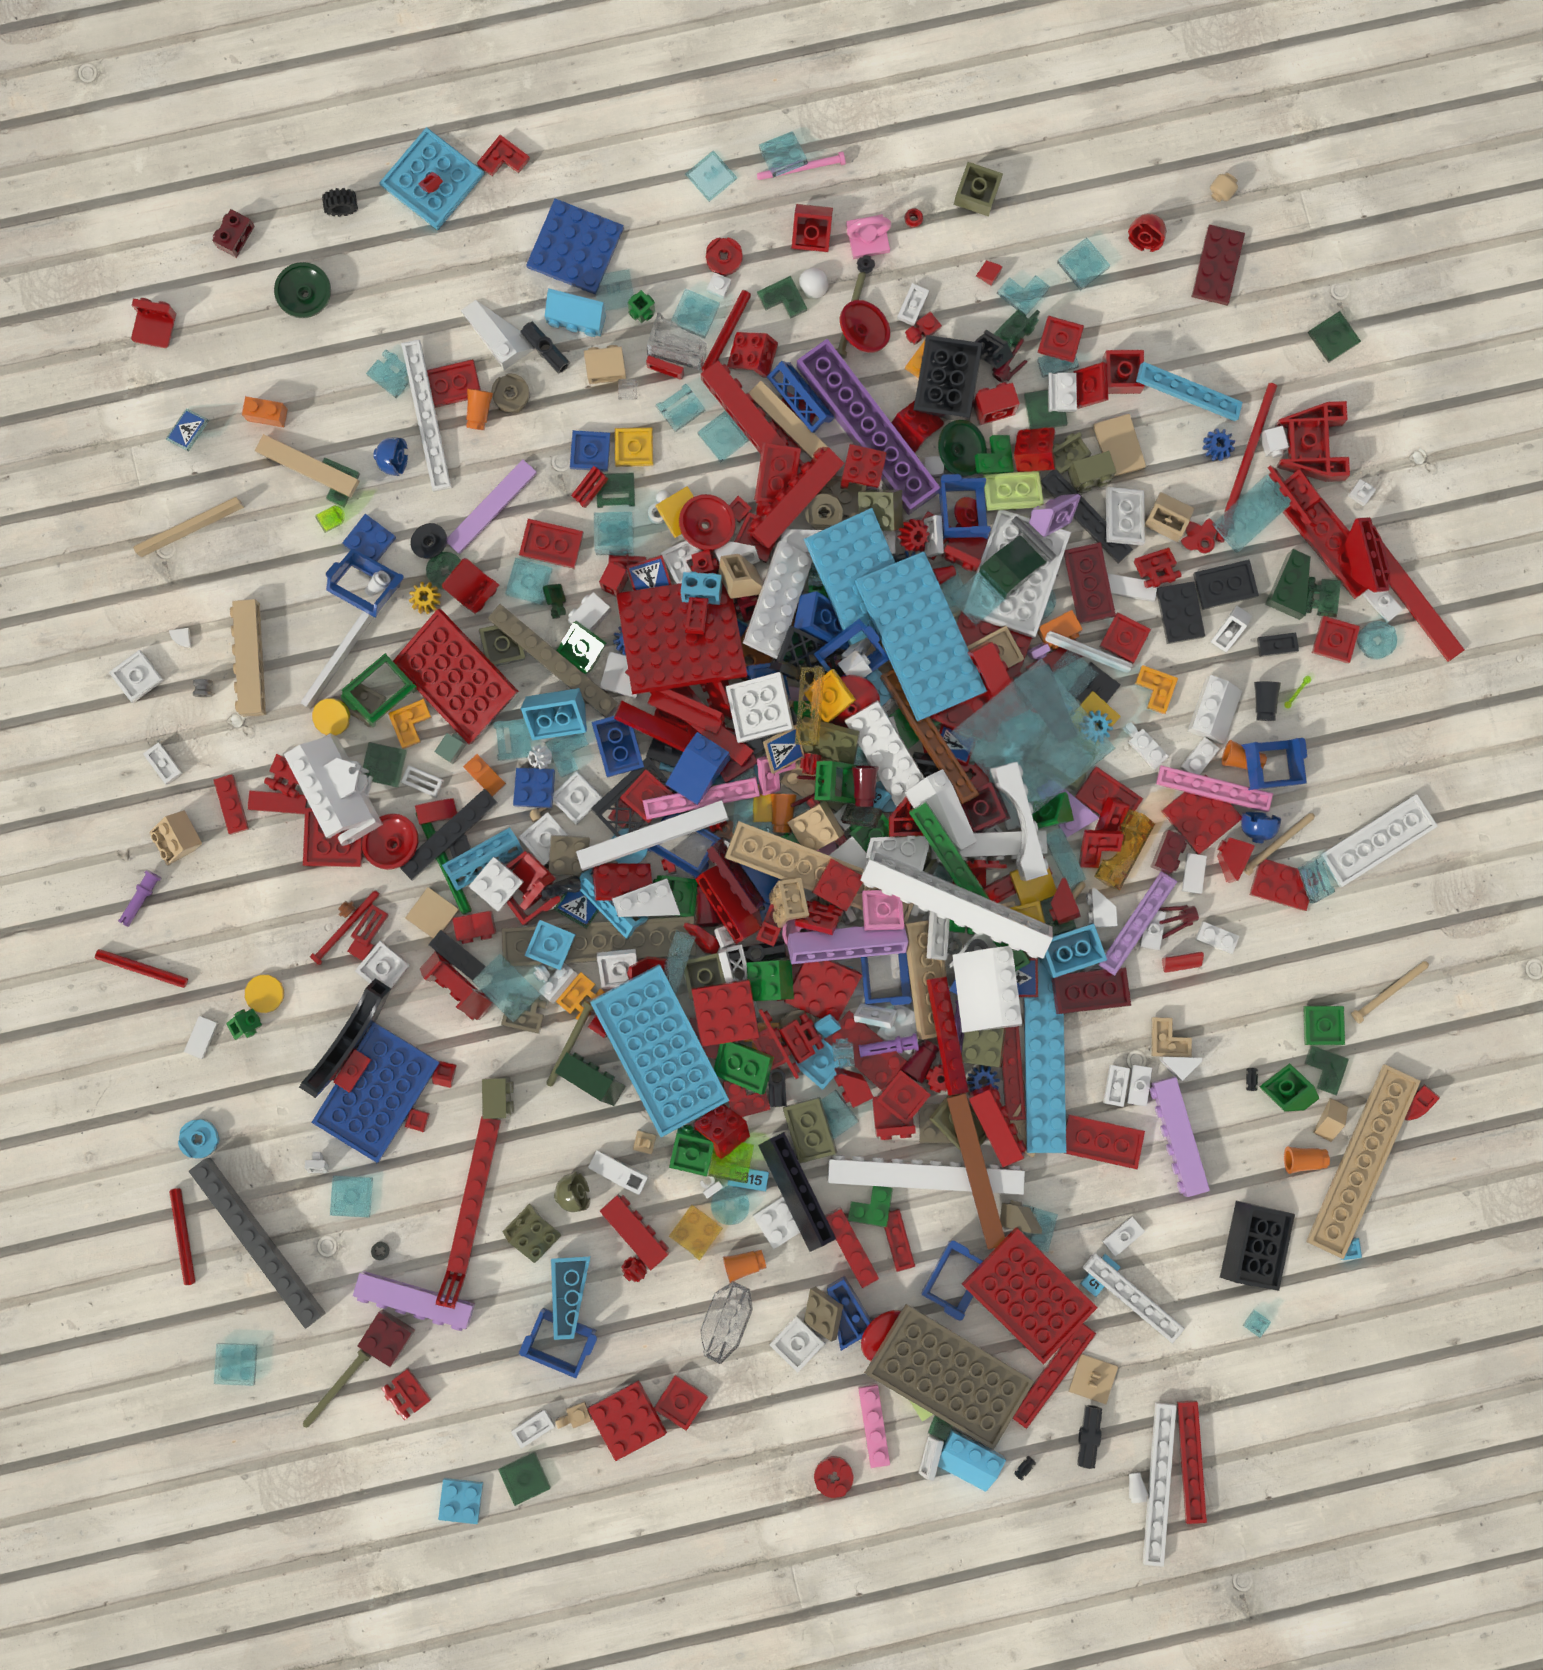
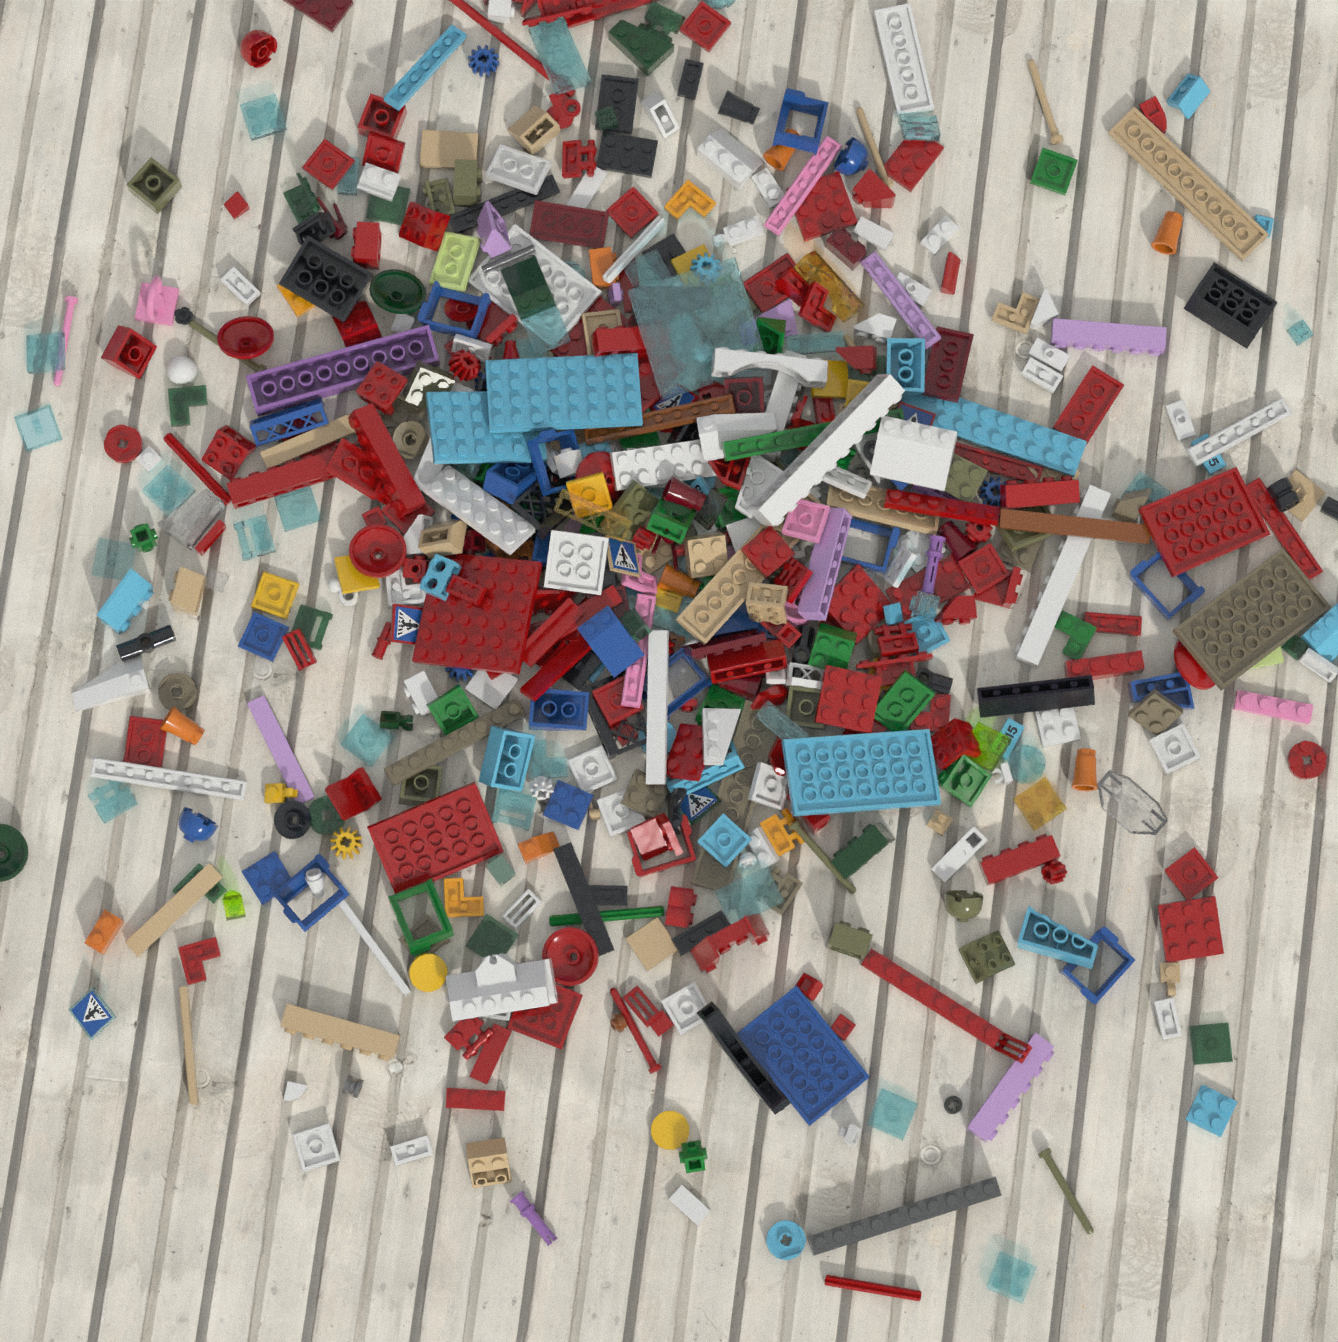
camera: 70 degrees left, 5 degrees down
(141, 968) = (602, 1240): red axle -> none
(271, 500) = (193, 957): none -> red plate
(352, 1070) = (775, 1068): red plate -> none
(386, 1338) = (1036, 1125): dark red brick -> none
(411, 1391) = (1093, 1120): red plate -> none
(436, 811) = (556, 905): red slope -> none
(449, 518) = (277, 792): none -> yellow plate
(480, 856) = (616, 875): medium azure fence -> none
(496, 884) = (648, 869): white plate -> none
(551, 543) = (339, 705): red plate -> none
(575, 246) = (56, 580): blue plate -> none
(613, 533) = (353, 642): clear light blue brick -> none
(614, 578) = (398, 656): red brick -> none
(721, 785) = (635, 625): none -> clear green brick
(809, 1130) = (983, 664): olive plate -> none
(838, 1114) = (977, 641): clear light blue plate -> none
(916, 213) = (156, 249): red plate -> none
(926, 325) = (266, 282): red plate -> none
(999, 459) = (420, 262): green plate -> none
(1023, 298) = (274, 184): clear light blue plate -> none
(1086, 1364) = (1284, 496): none -> black wheel
(1186, 915) = (910, 254): dark red plant -> none
(1207, 578) = (606, 118): none -> clear green plate
(1251, 1079) = (1079, 253): black piece -> none
(1290, 1090) = (1101, 222): green slope -> none
(1306, 680) = (732, 66): clear neon green hinge -> none
(1332, 1067) = (1096, 179): clear green plate -> none
(1332, 1120) = (1141, 197): tan slope -> none
(1454, 1130) = (1188, 95): none -> medium azure panel

